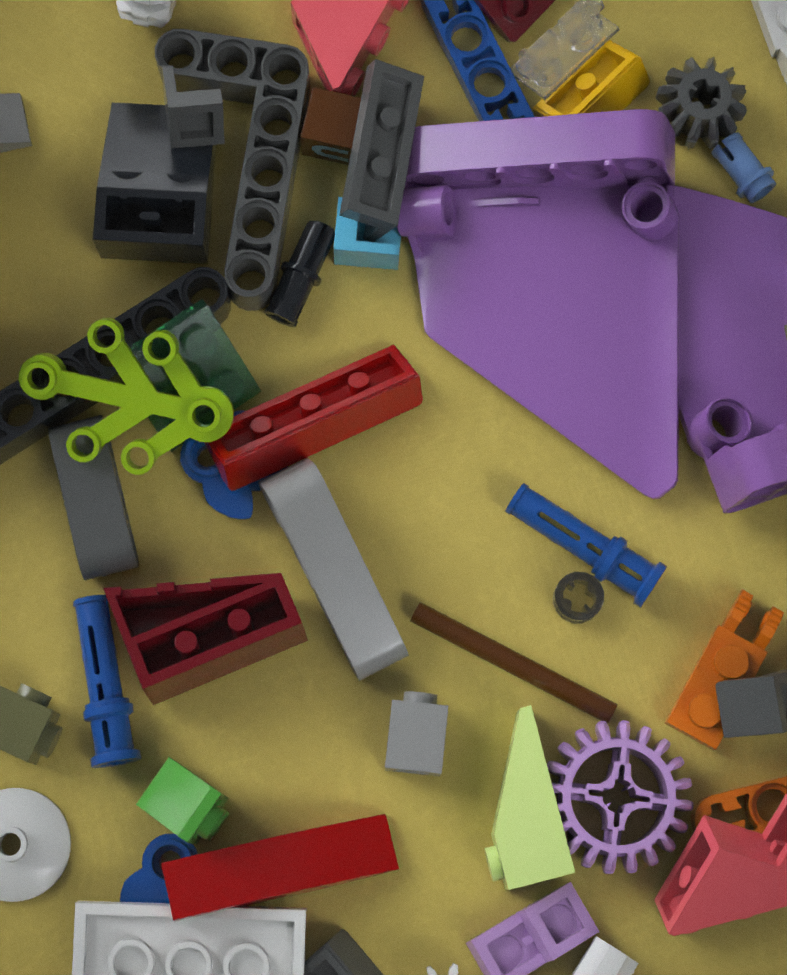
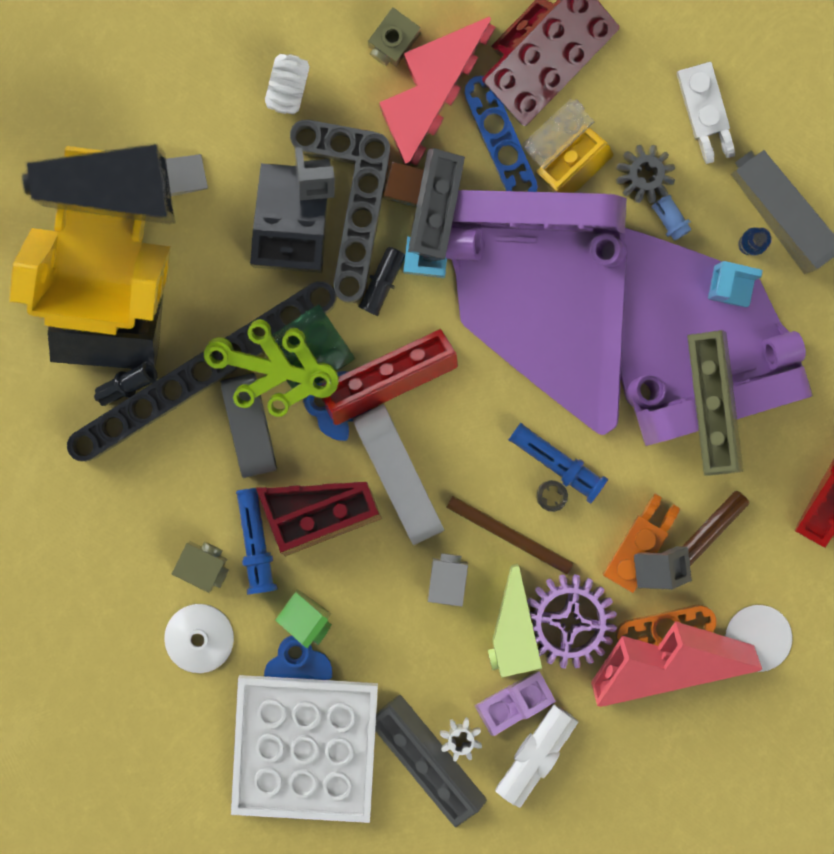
camera: 10 degrees right, 10 degrees up
(279, 867) = (362, 658): red slope -> none

